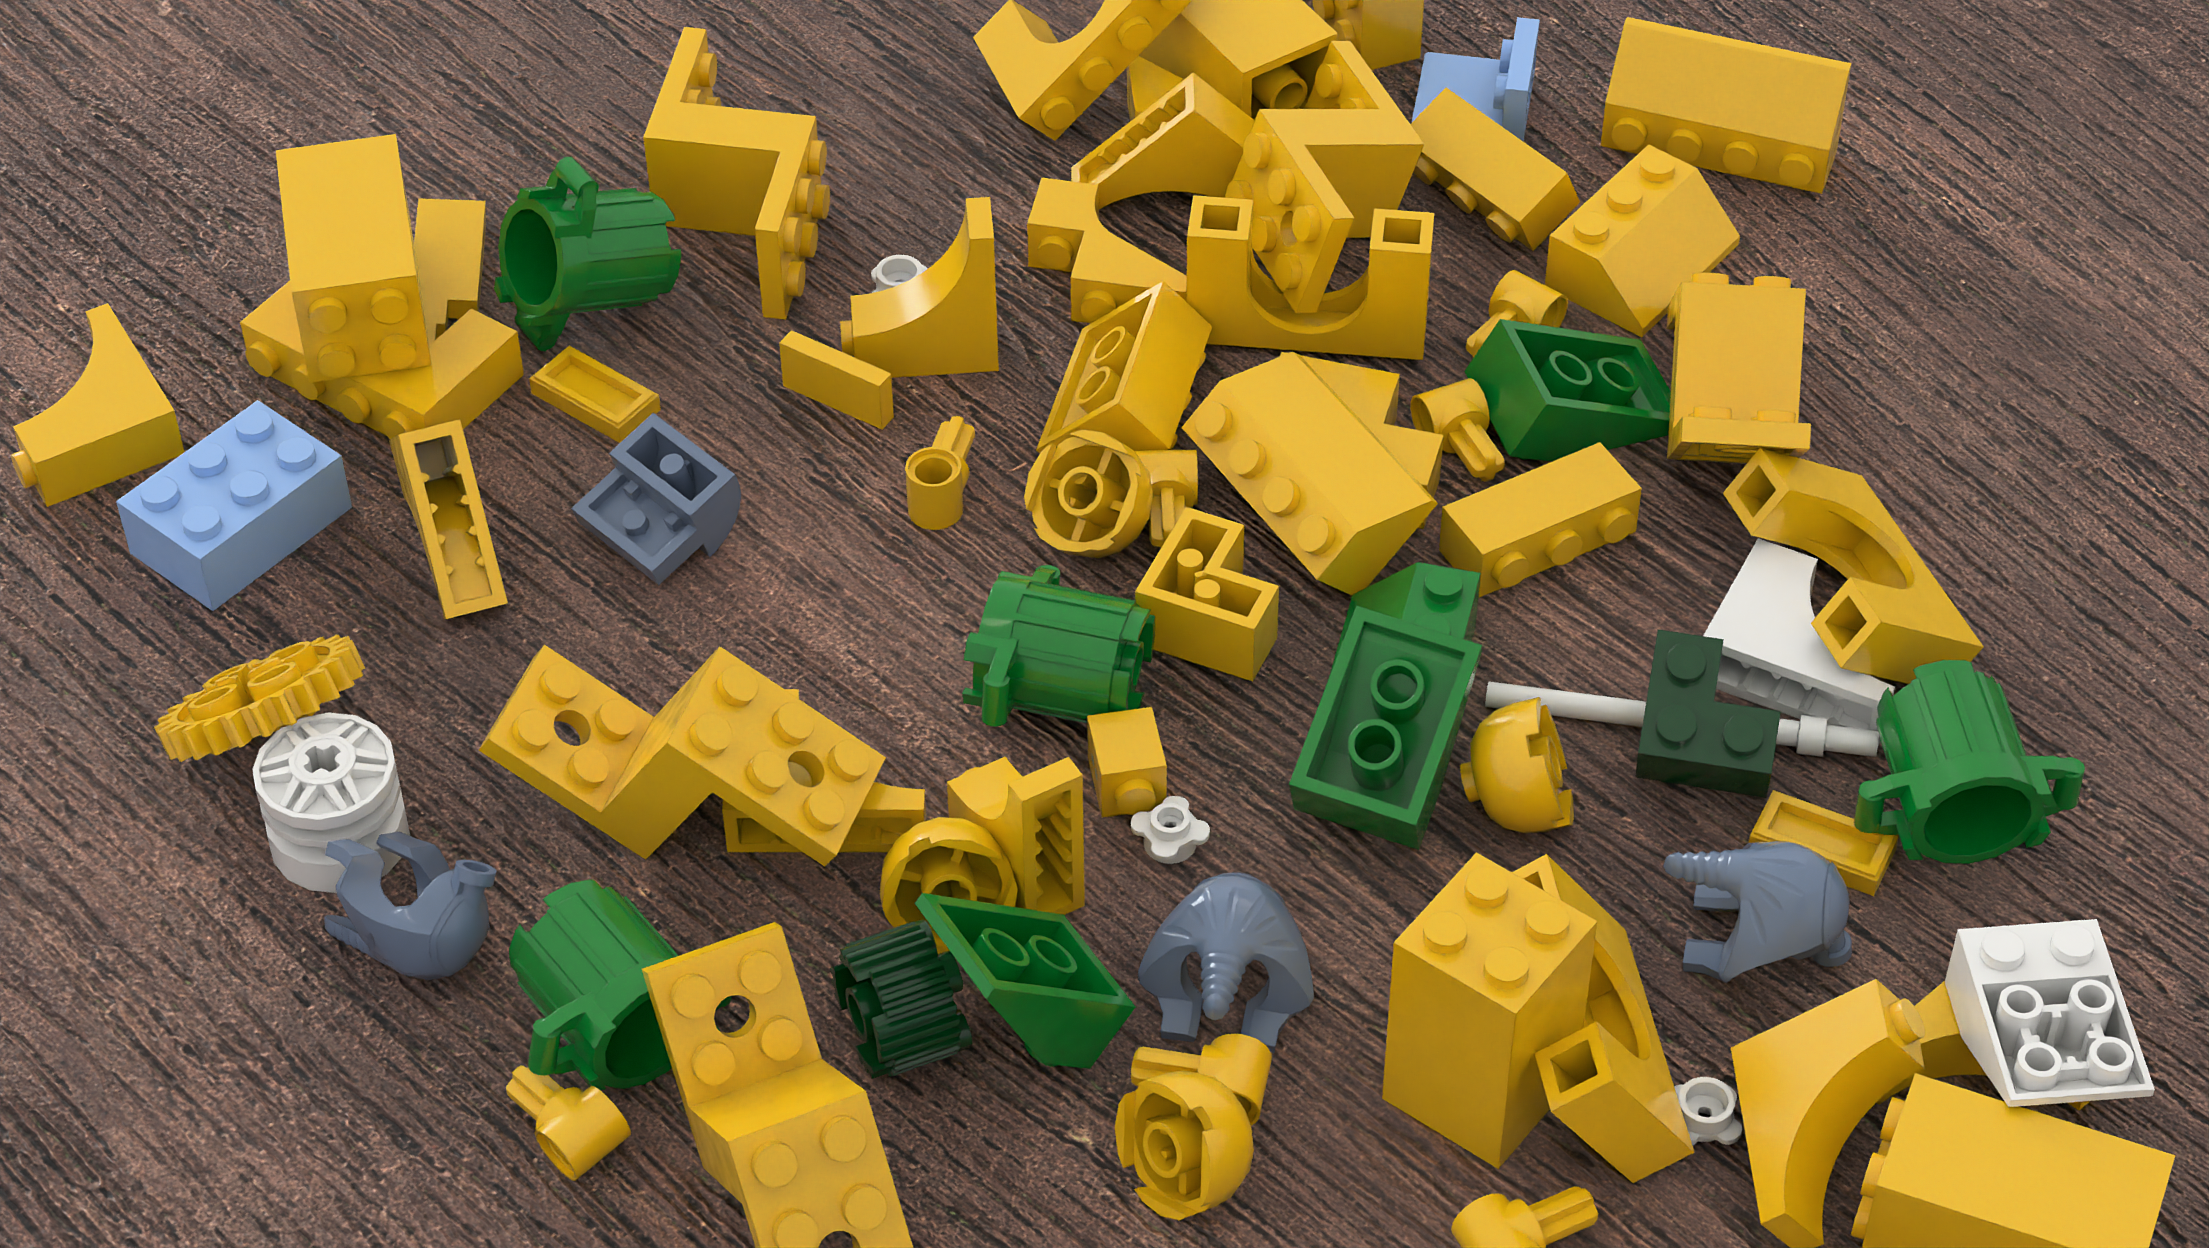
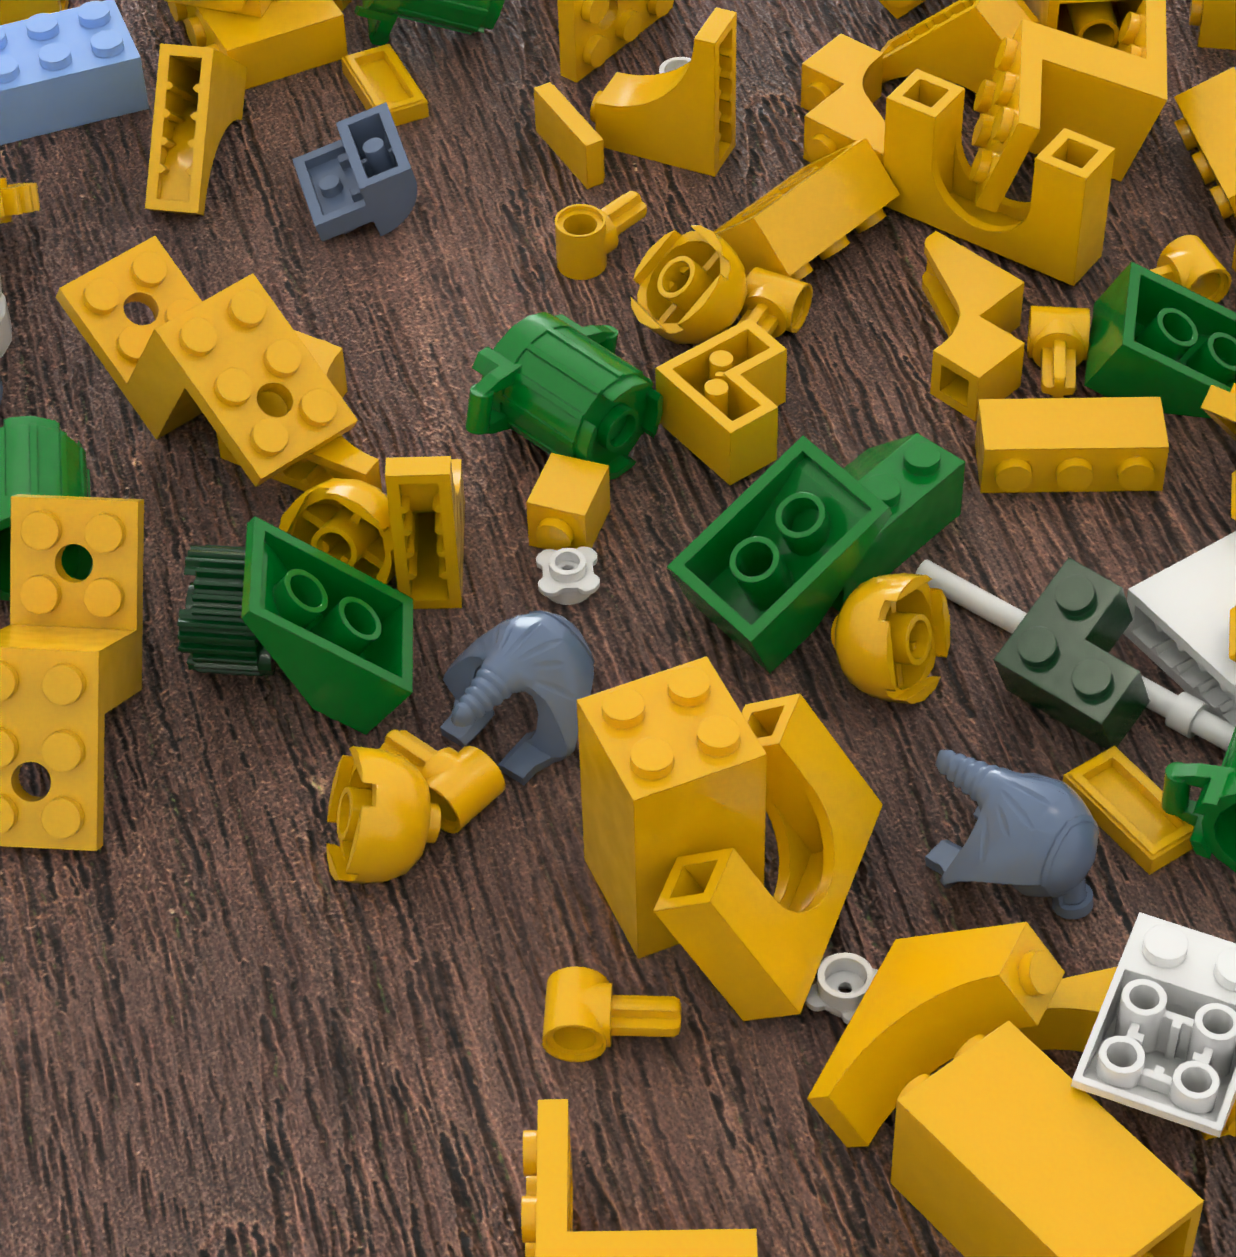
camera: 30 degrees right, 0 degrees up
(1310, 470) = (885, 331): yellow slope -> none

